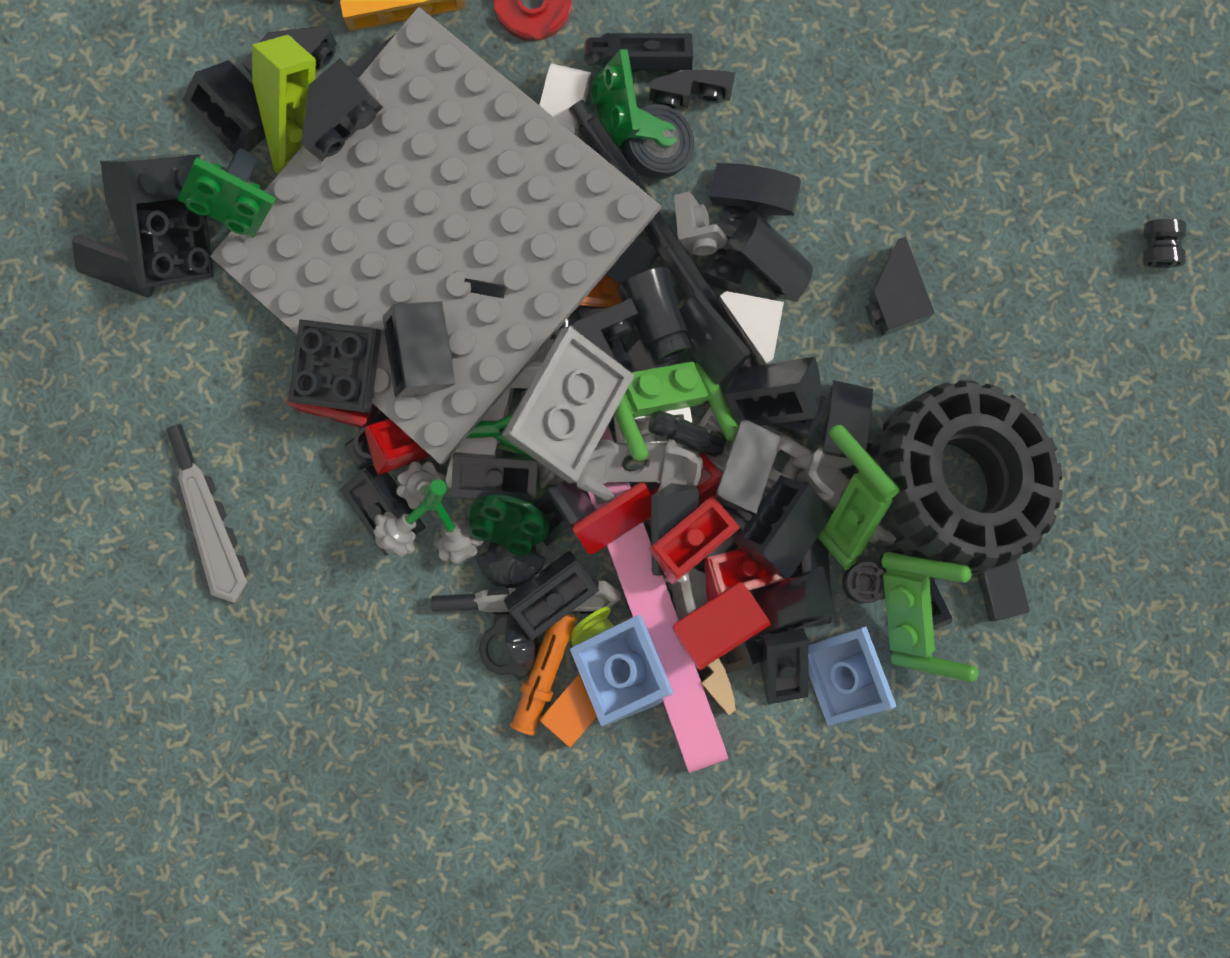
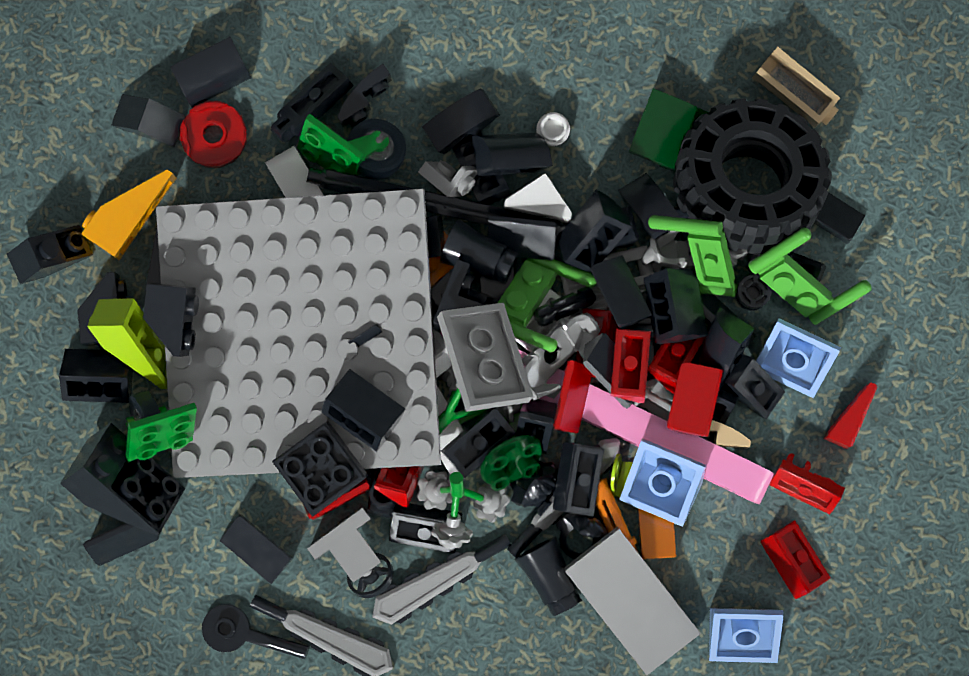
camera: 40 degrees left, 0 degrees up
(130, 431) = (228, 629): none -> black piece
(221, 385) = (256, 549): none -> black slope
(295, 471) = (355, 555): none -> light grey piece
(323, 557) = (419, 589): none -> light grey sword
(445, 655) = (545, 570): none -> black plant
(494, 747) = (631, 601): none -> light grey tile
(565, 874) = (745, 635): none -> light blue slope
(673, 852) = (795, 560): none -> red slope
(748, 804) = (806, 486): none -> red plate
(829, 273) = (553, 128): none -> white plate
(838, 779) = (848, 424): none -> red slope
(899, 293) = (606, 101): black slope -> none
(924, 363) = (664, 128): none -> dark green slope
(1079, 441) = (797, 88): none -> tan window

